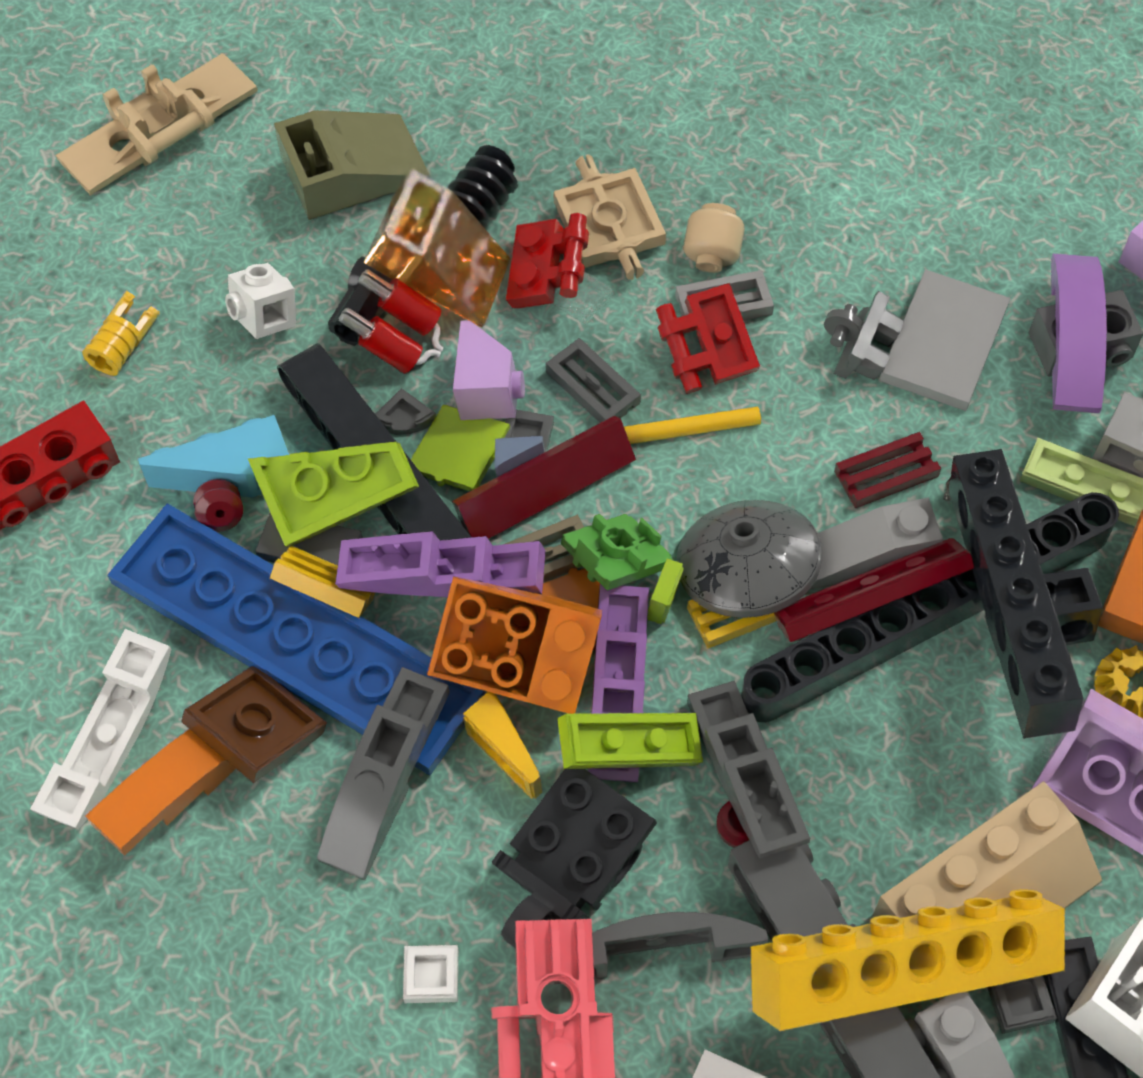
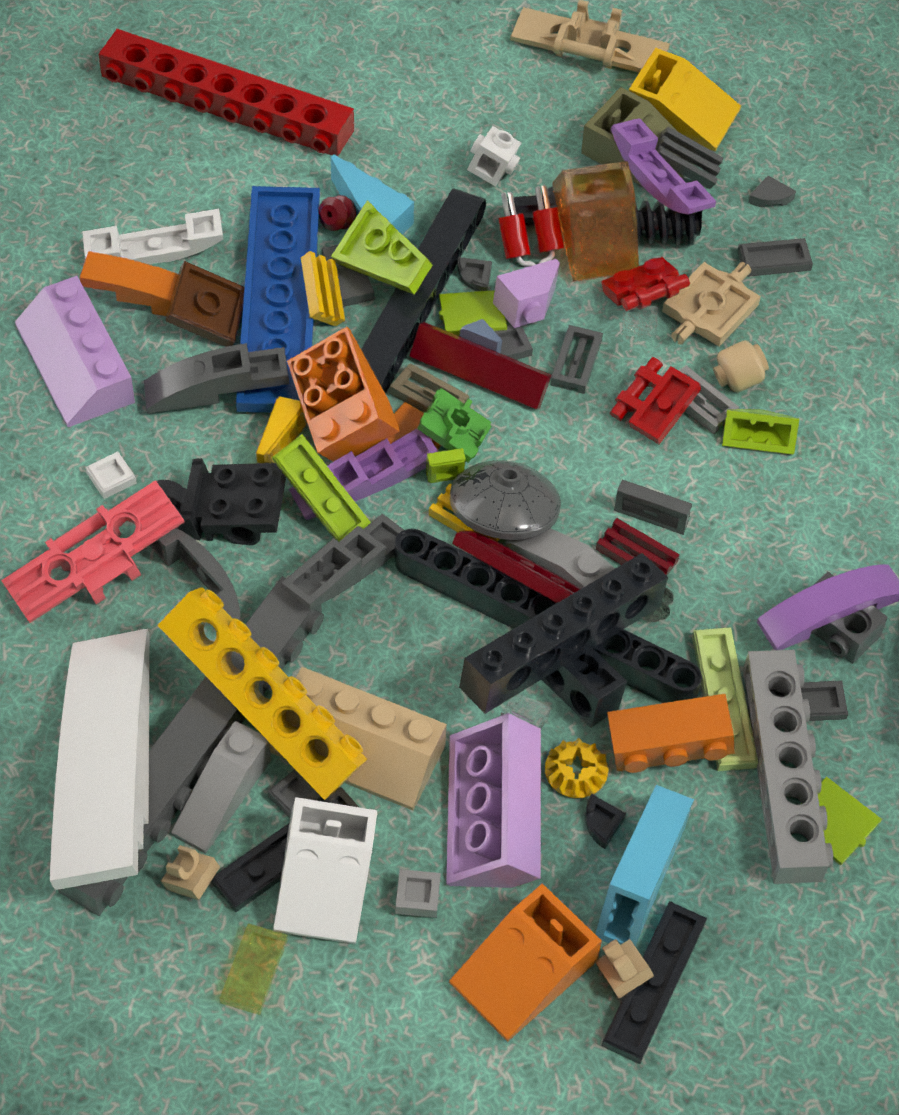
camera: 55 degrees right, 5 degrees down
(118, 337) = (414, 105): yellow hinge -> none
(216, 919) = (74, 353): none -> lavender slope
(317, 77) = (686, 98): none -> yellow slope
(398, 119) = (689, 153): none -> dark grey tile
(425, 565) = (354, 309): medium lavender slope -> none
(443, 162) = (638, 147): none -> medium lavender slope
(496, 83) = (771, 193): none -> dark grey tile
(582, 128) = (776, 256): none -> dark grey tile
(693, 425) = (586, 427): yellow bar -> none
(803, 266) = (760, 430): none -> lime slope
(846, 420) = (652, 507): none -> dark grey tile
(858, 332) = (730, 480): dark grey hips -> none
(945, 340) = (772, 540): light grey tile -> none

